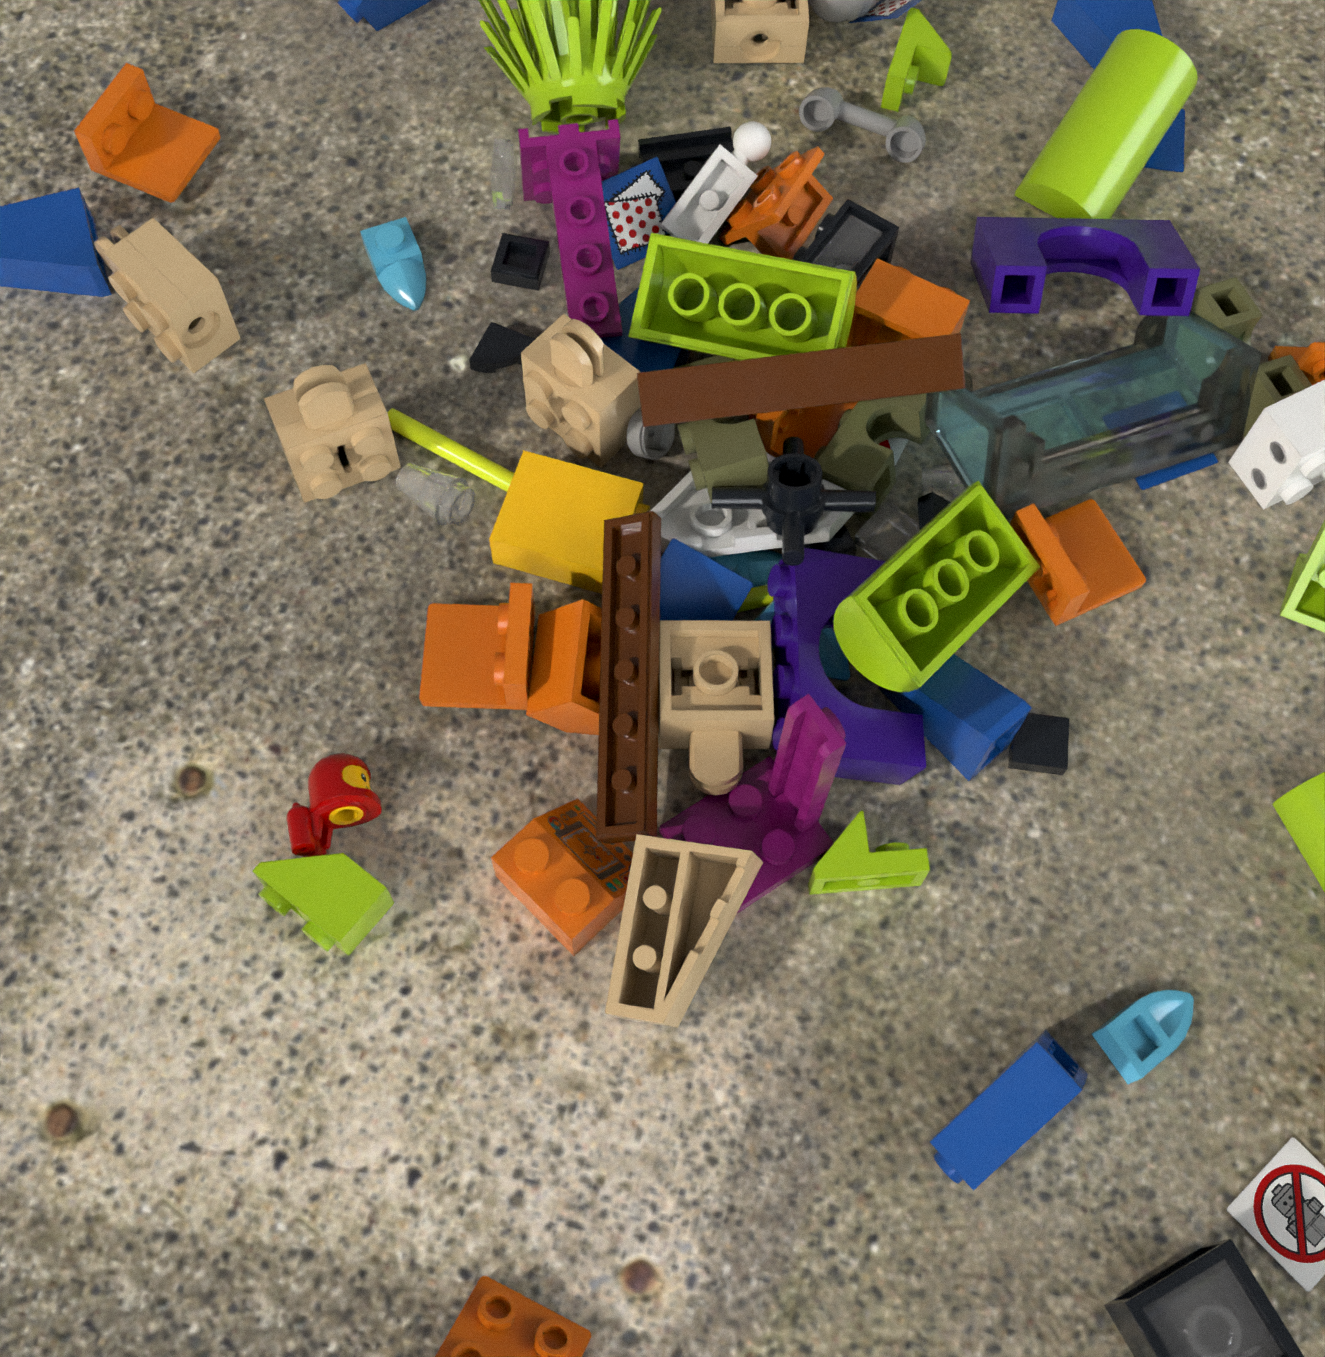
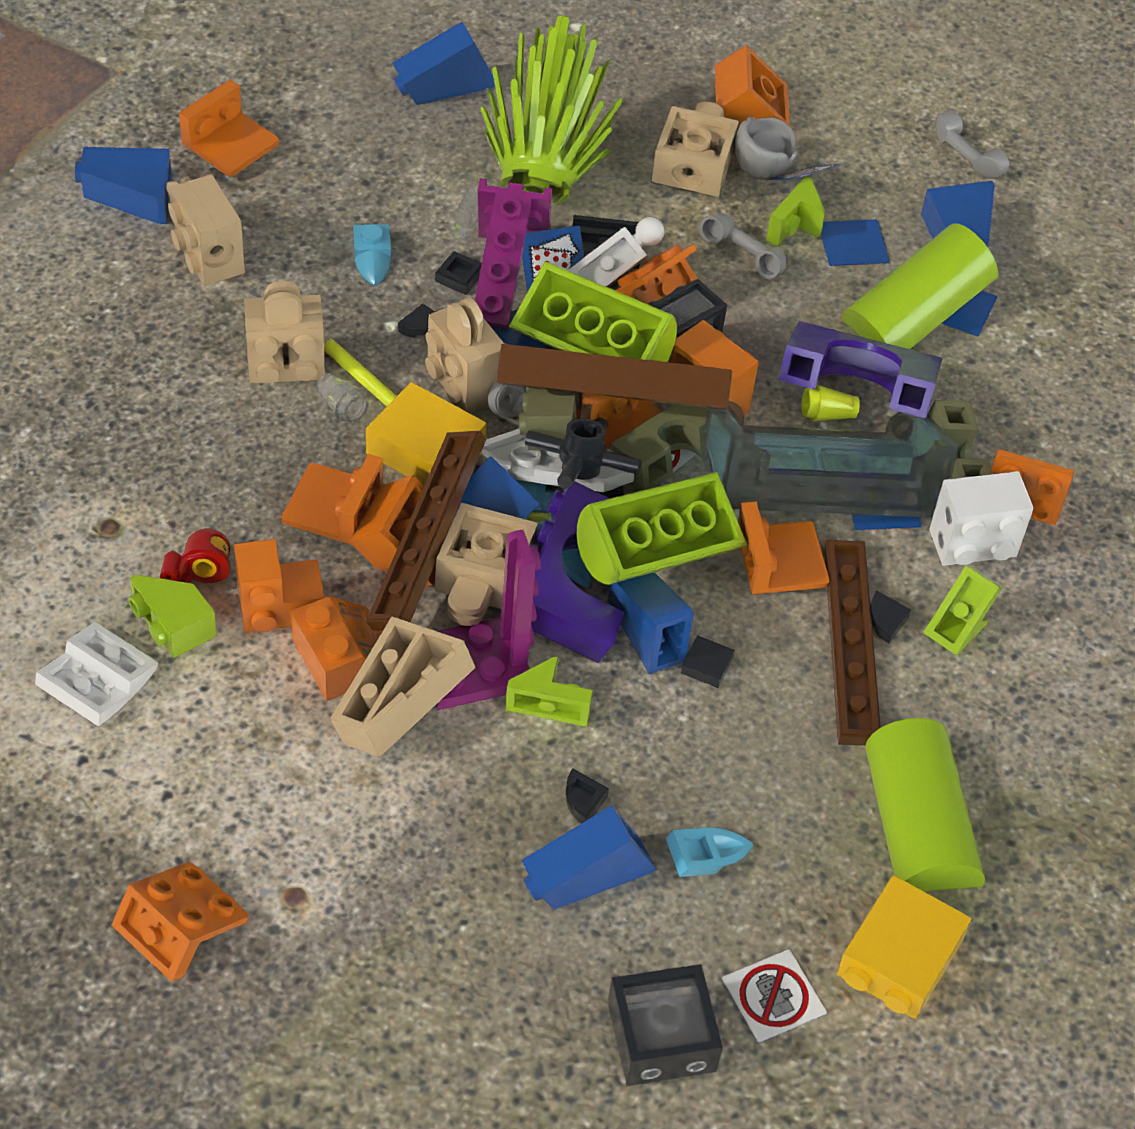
camera: 15 degrees right, 15 degrees down
(253, 1020) = (96, 673): none -> white slope
(456, 821) = (270, 588): none -> orange brick
(957, 996) = (584, 795): none -> black tile
(988, 82) = (853, 242): none -> blue sticker
(1052, 324) = (828, 404): none -> neon yellow cone
(1204, 661) = (851, 642): none -> reddish brown tile
(1231, 606) = (888, 616): none -> black tile

